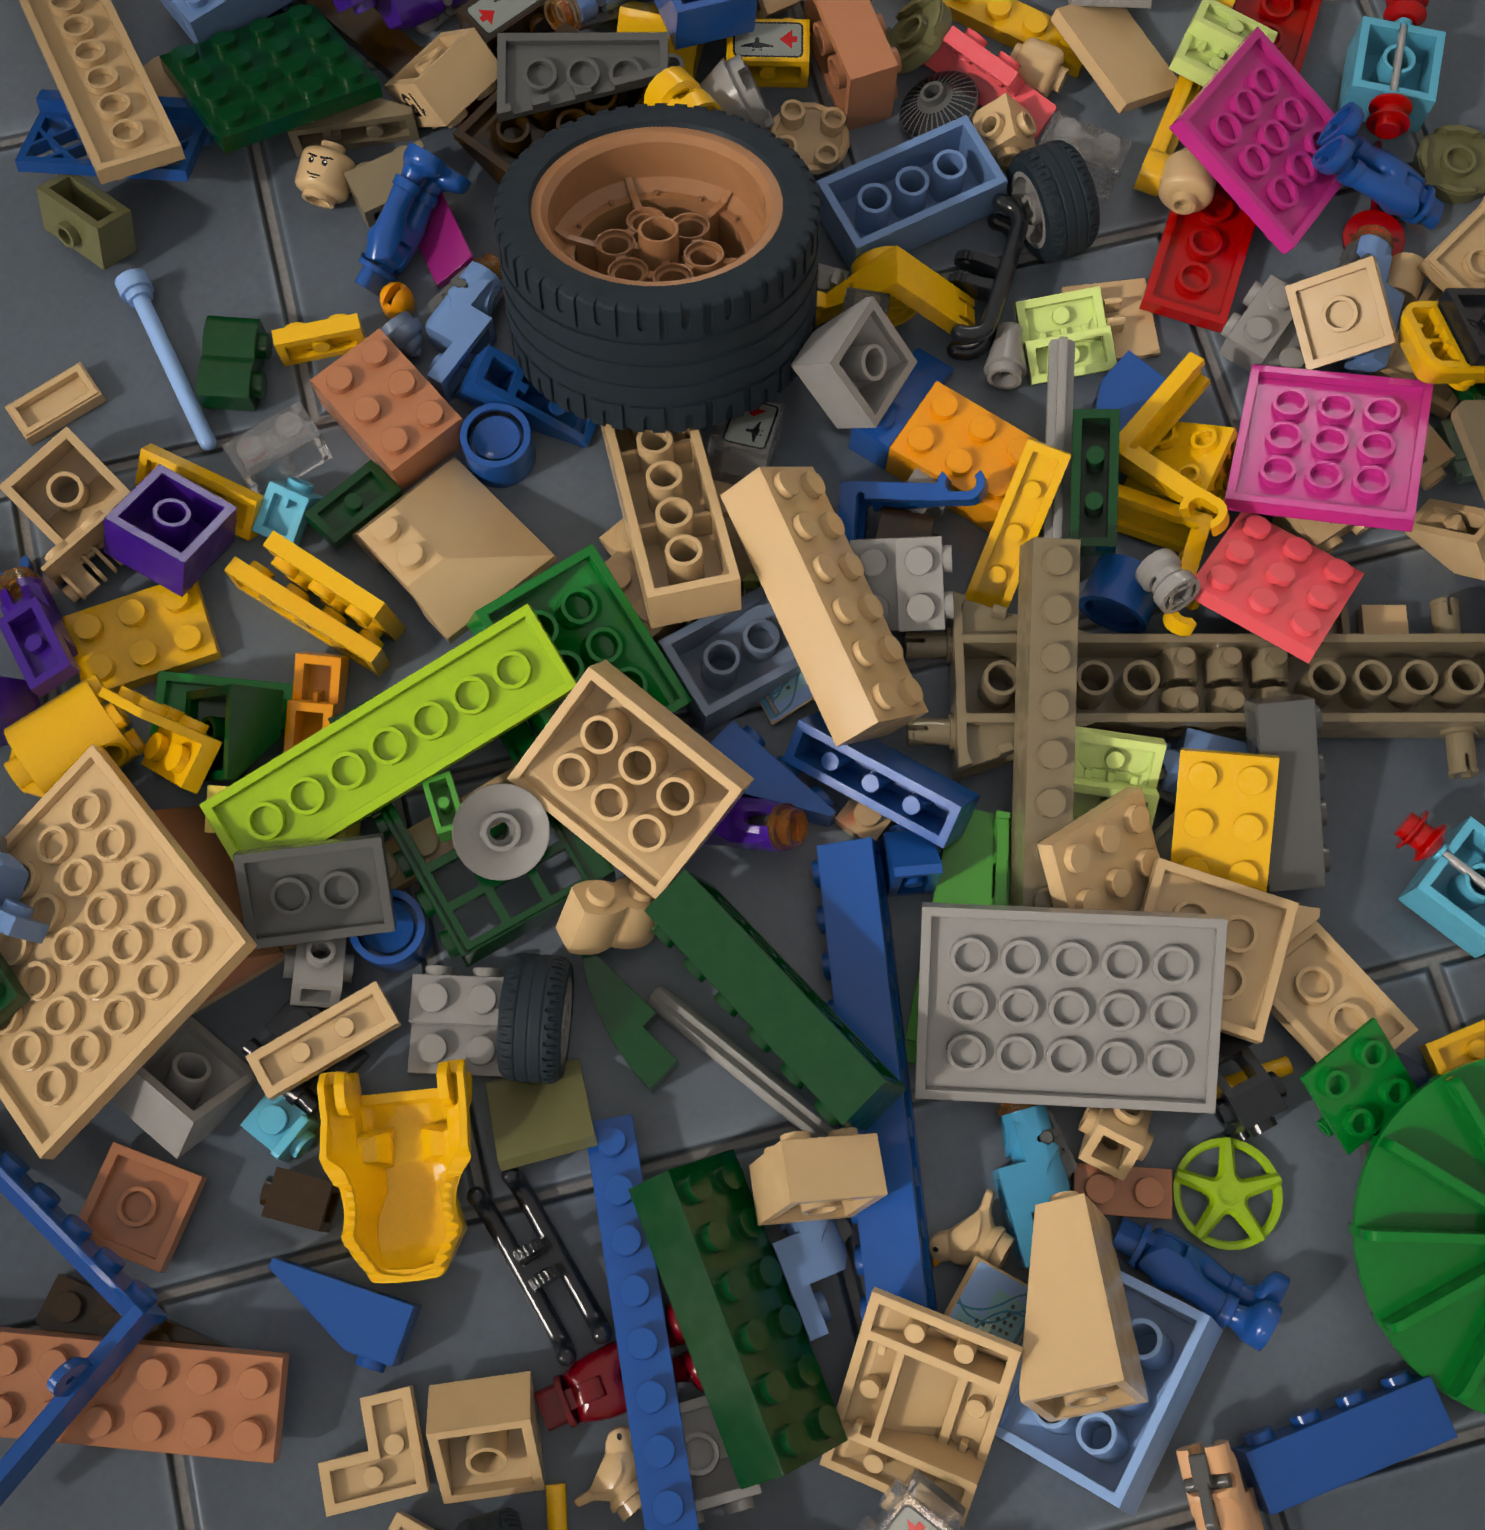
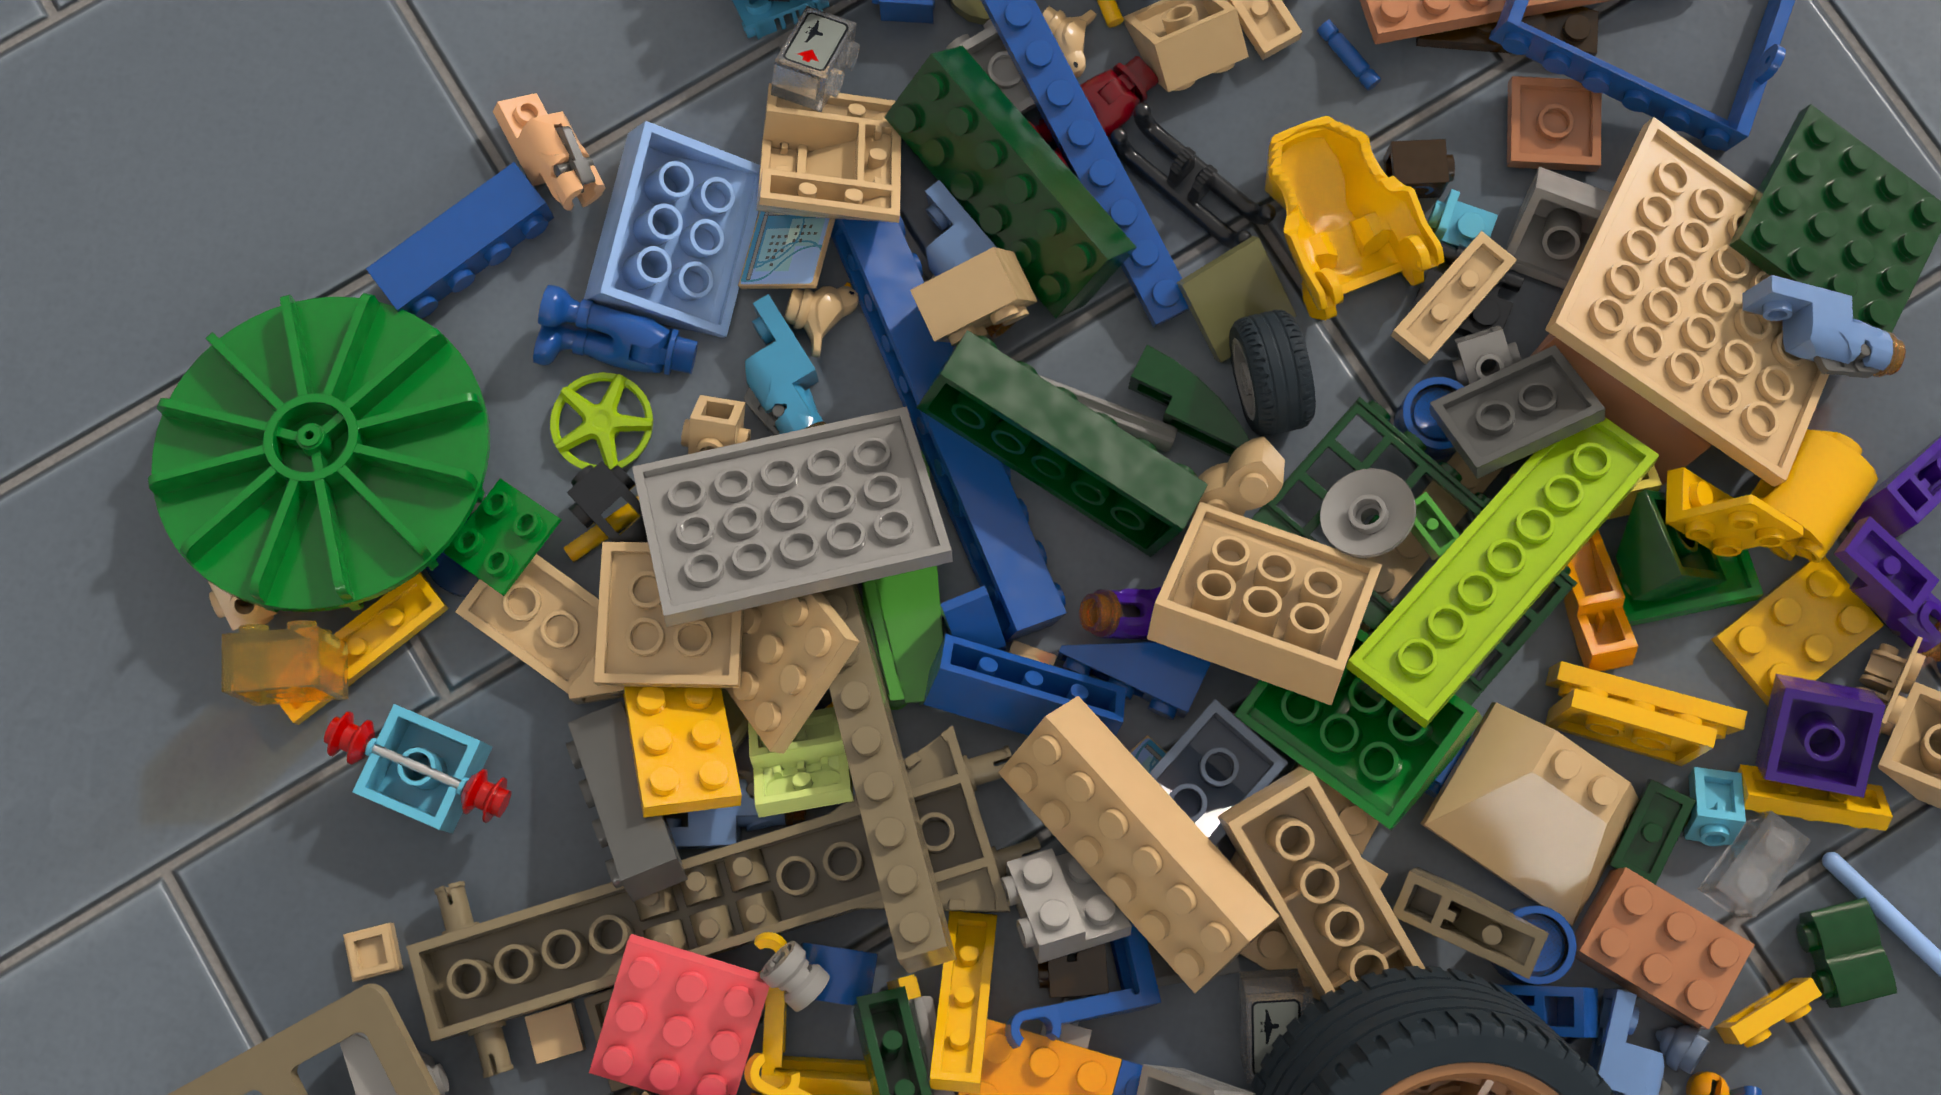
camera: 165 degrees right, 5 degrees up
(318, 1361) = (1348, 55): none -> blue wheel
(354, 1315) = (1325, 87): blue slope -> none
(454, 1020) = (1348, 360): light grey plate -> none
(548, 469) = (1469, 922): none -> dark tan slope
(1077, 1317) = (716, 263): tan slope -> none
(1142, 1194) = (676, 396): nougat plate -> none

